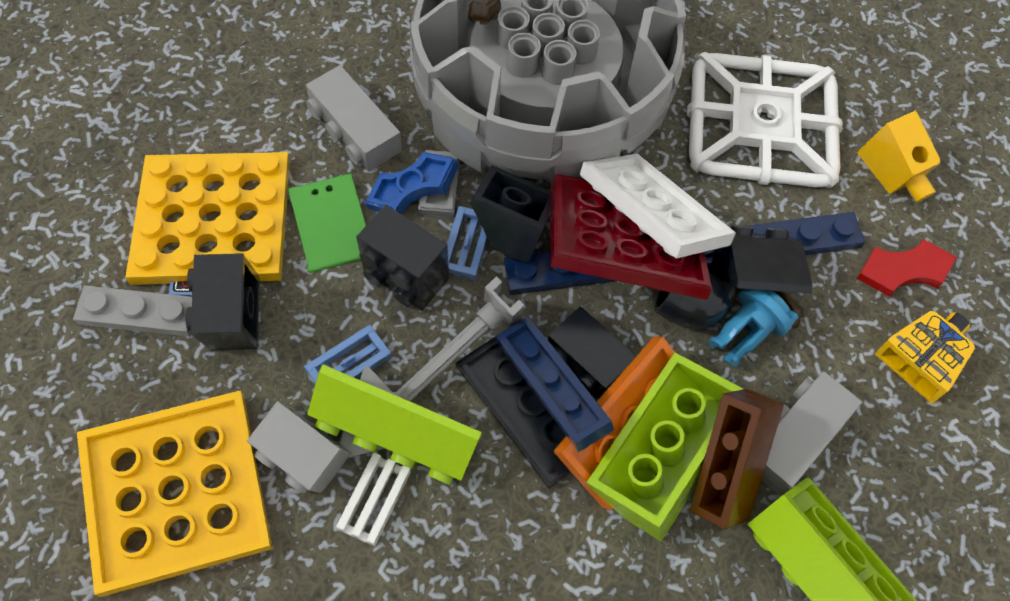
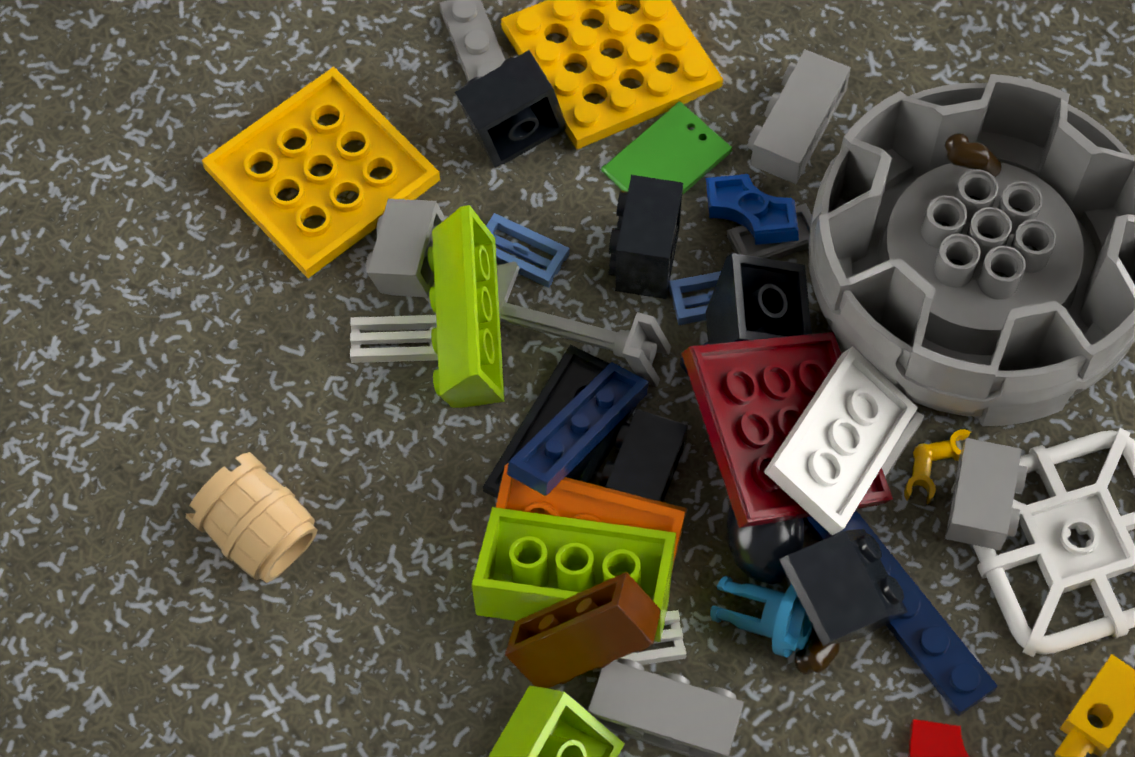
camera: 70 degrees right, 0 degrees up
(662, 165) = (923, 458): none -> yellow arm
(723, 145) = (985, 493): none -> light grey brick

